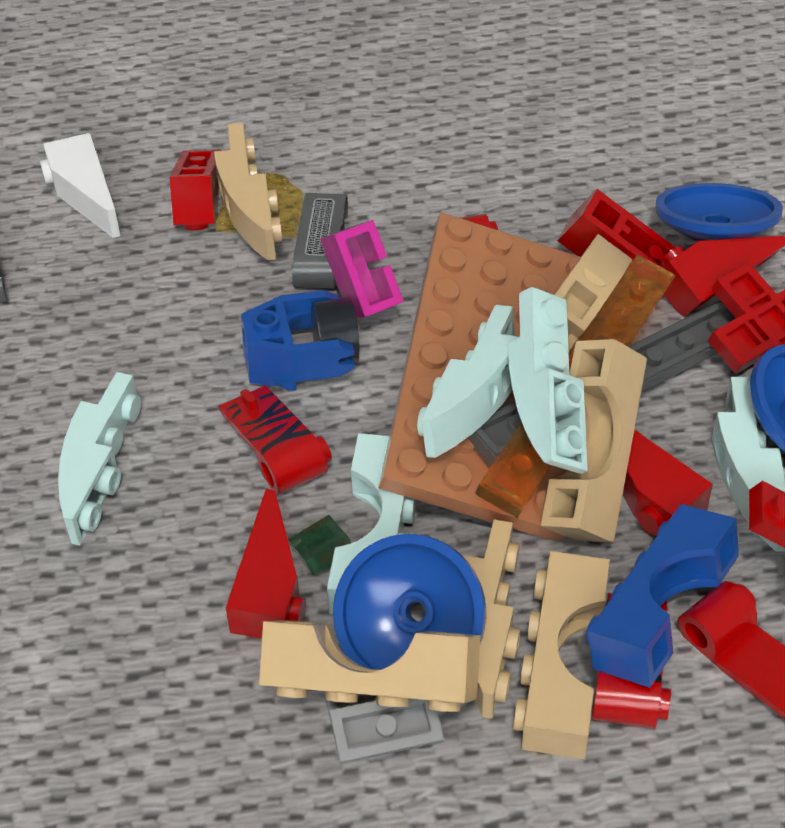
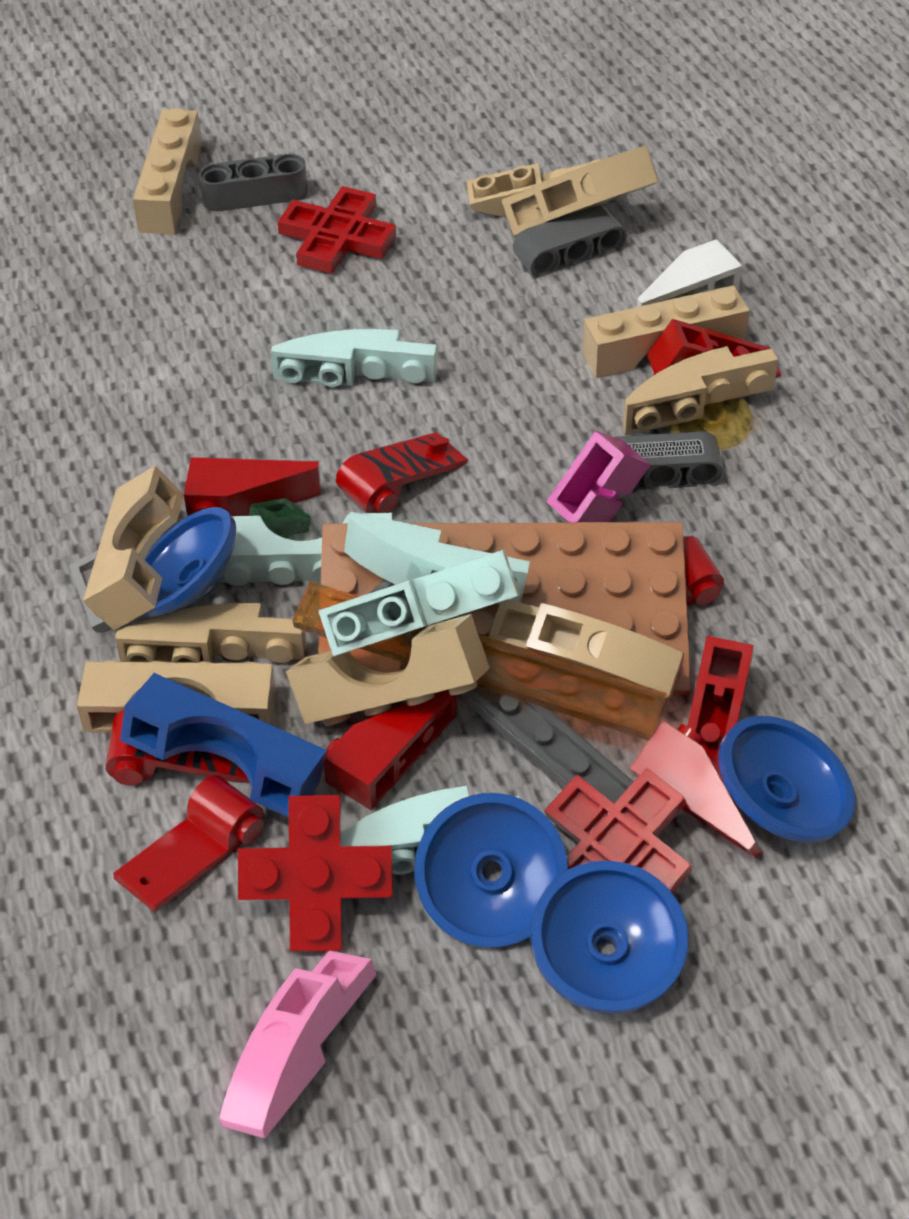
camera: 80 degrees right, 0 degrees up
(149, 208) = (622, 338): none -> tan arch
(269, 347) = (520, 475): blue piece -> none

